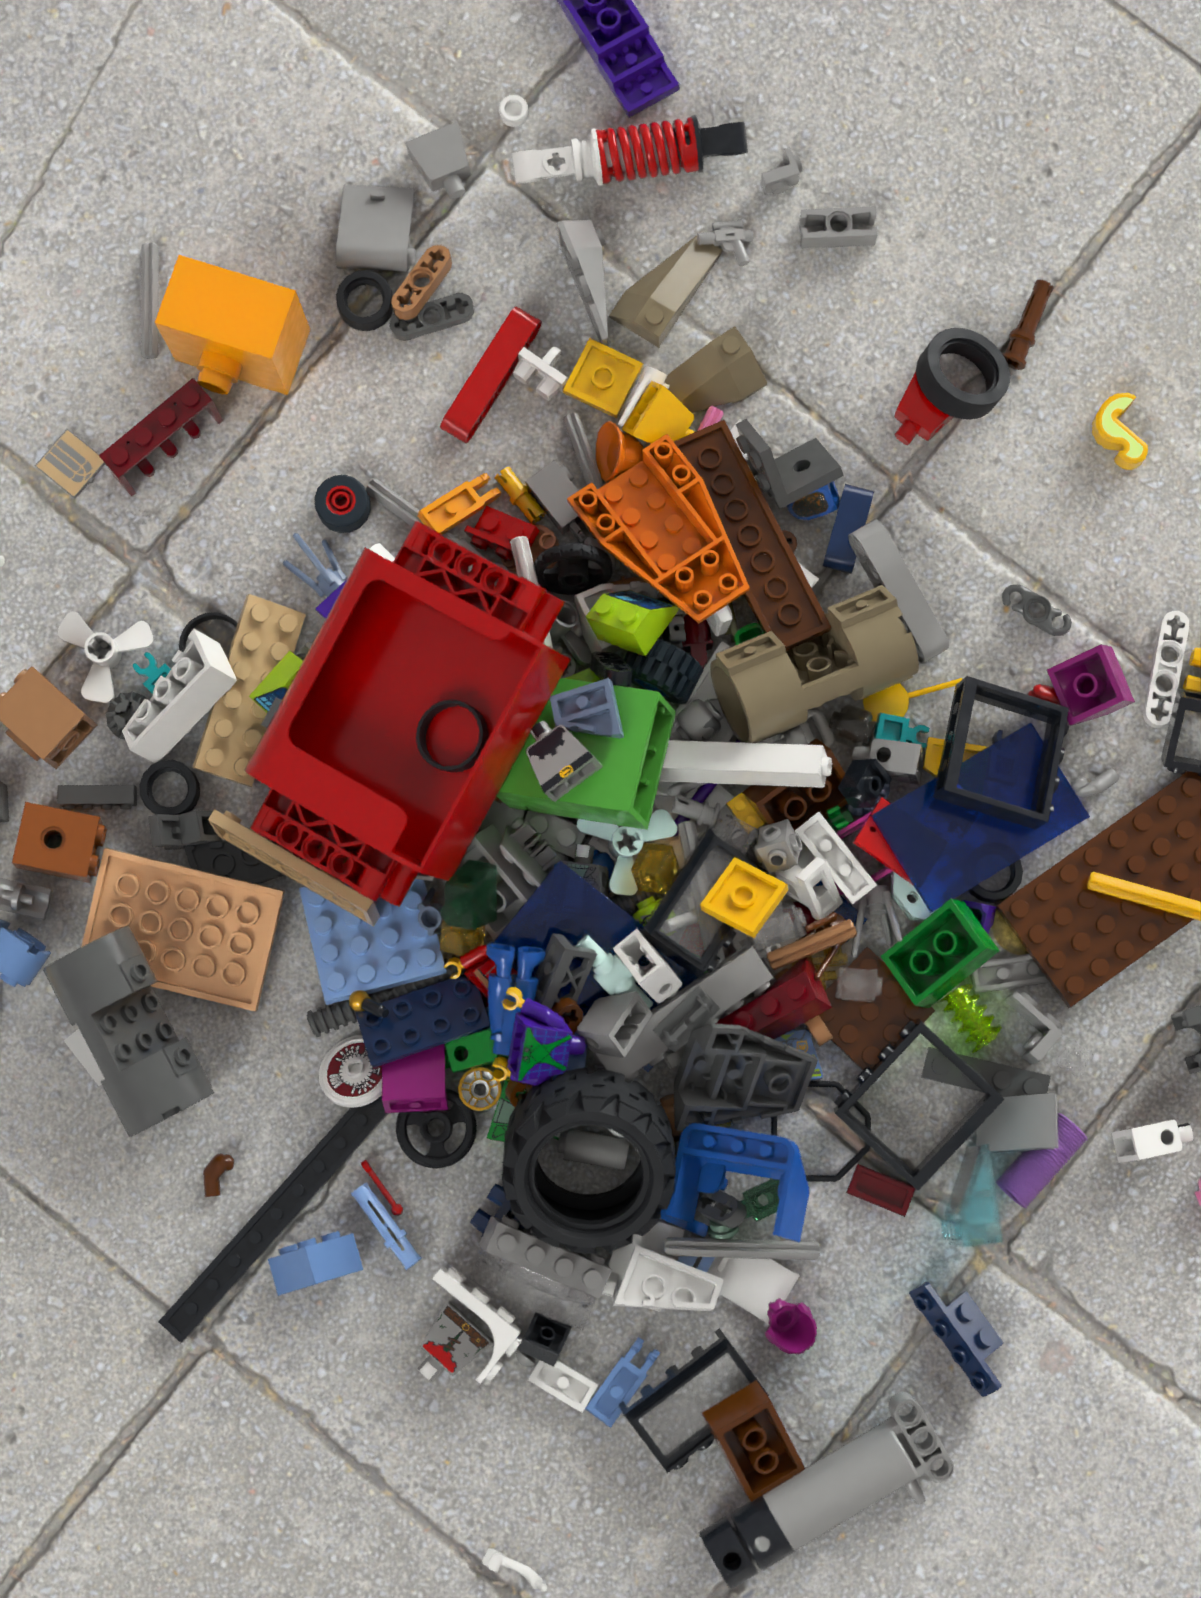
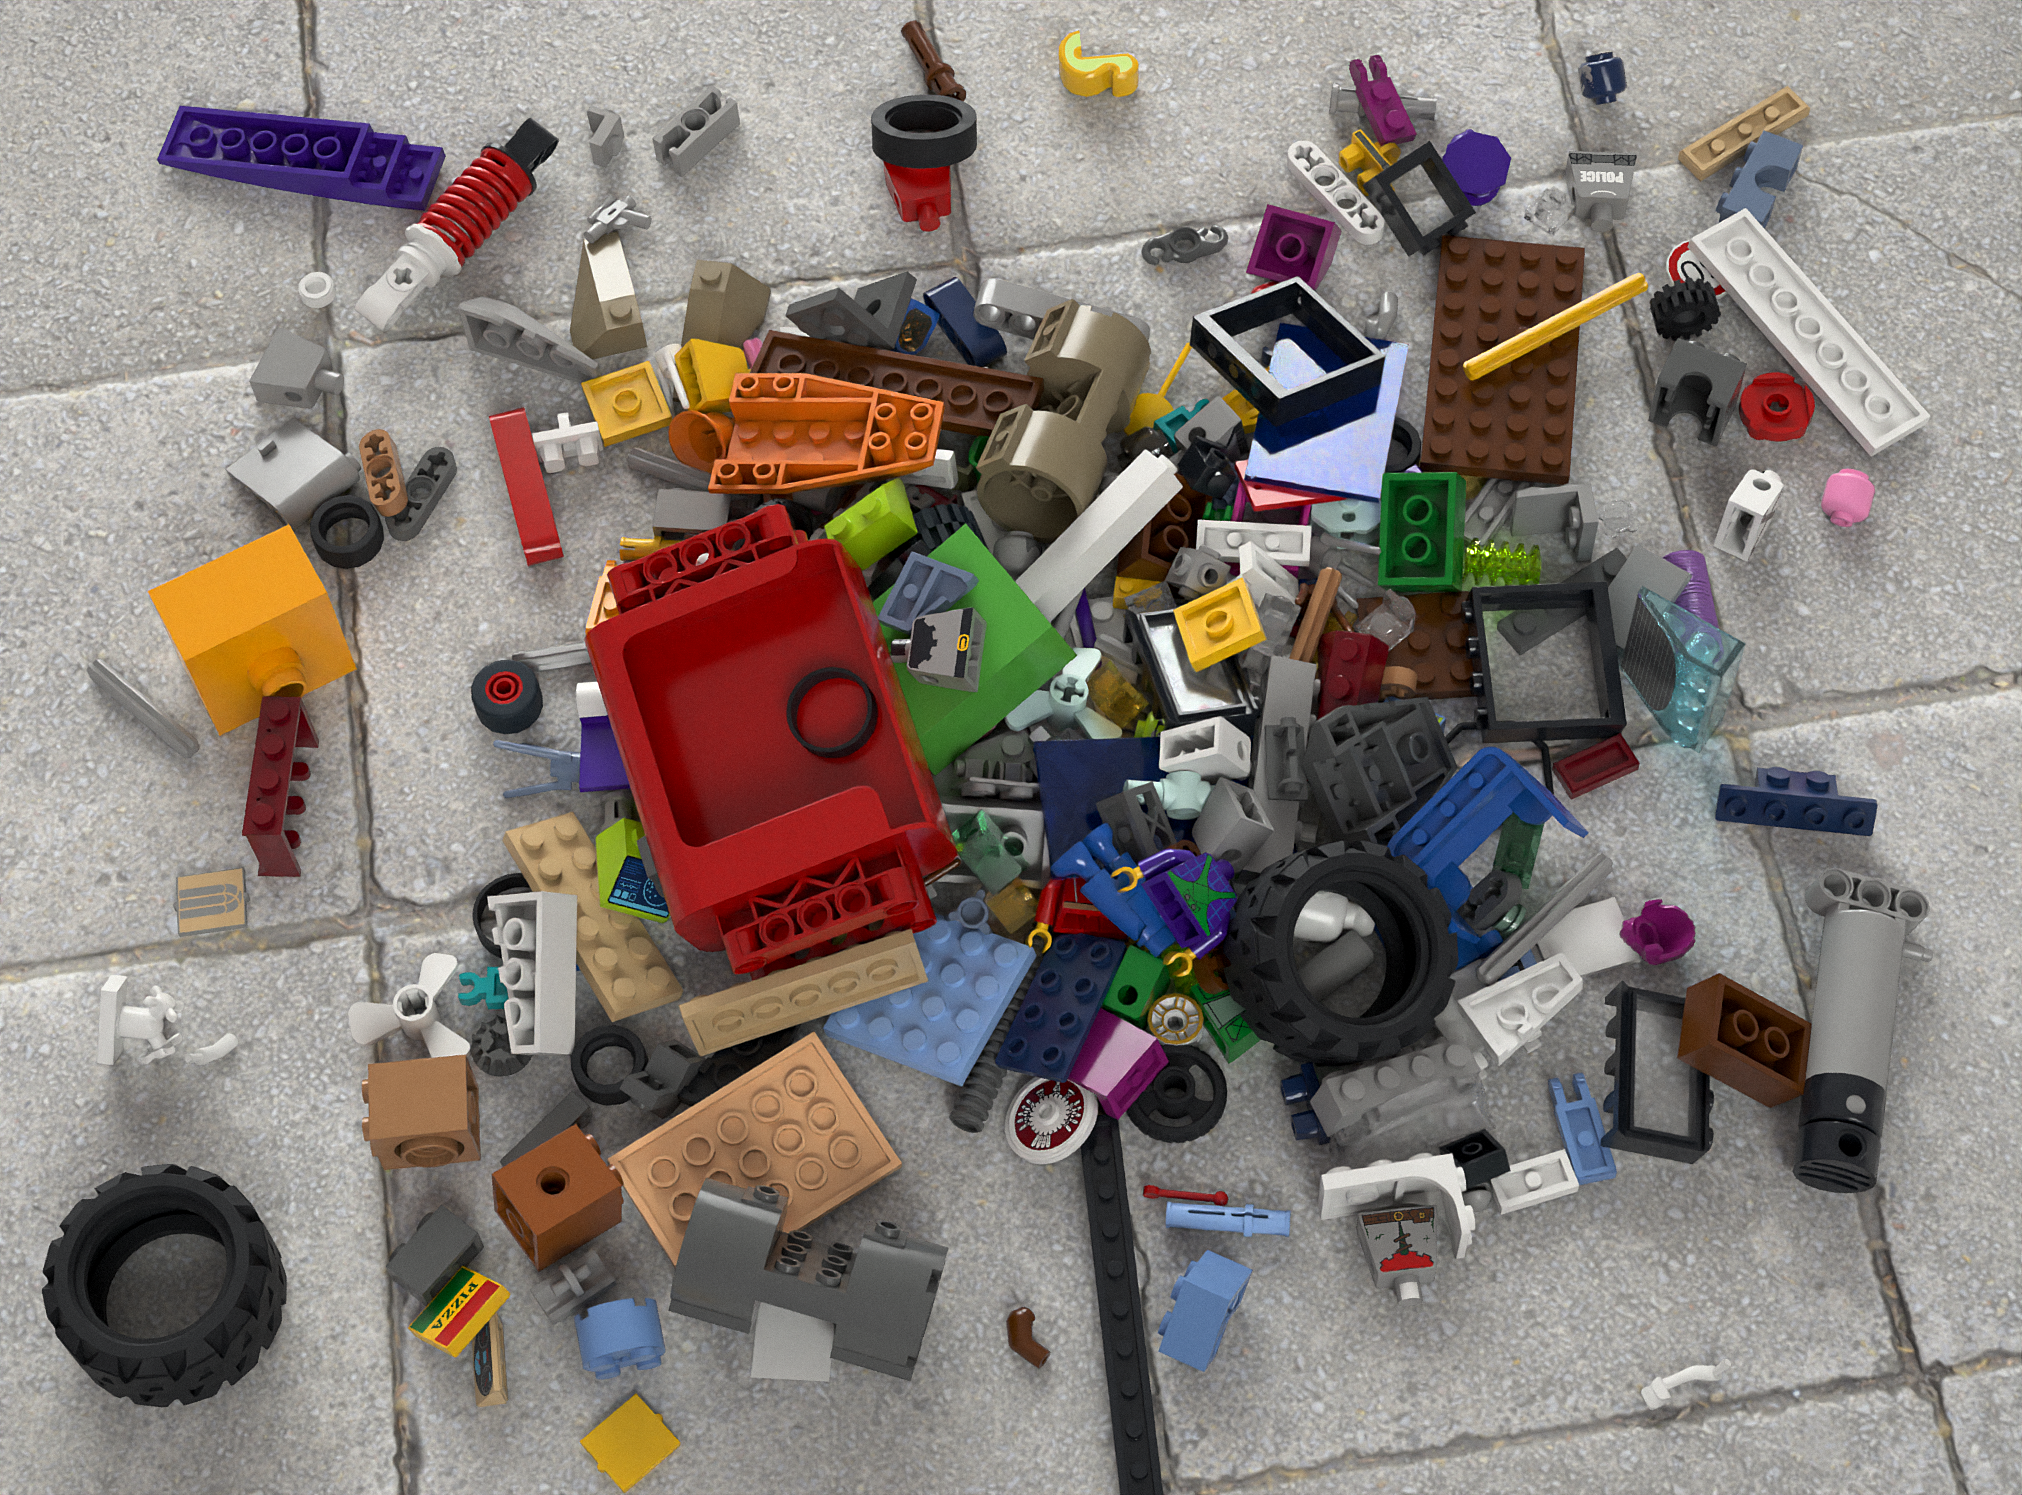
camera: 50 degrees left, 20 degrees down
(360, 1001) = (989, 1046): piece -> none
(696, 811) = (1099, 622): light grey pin -> none

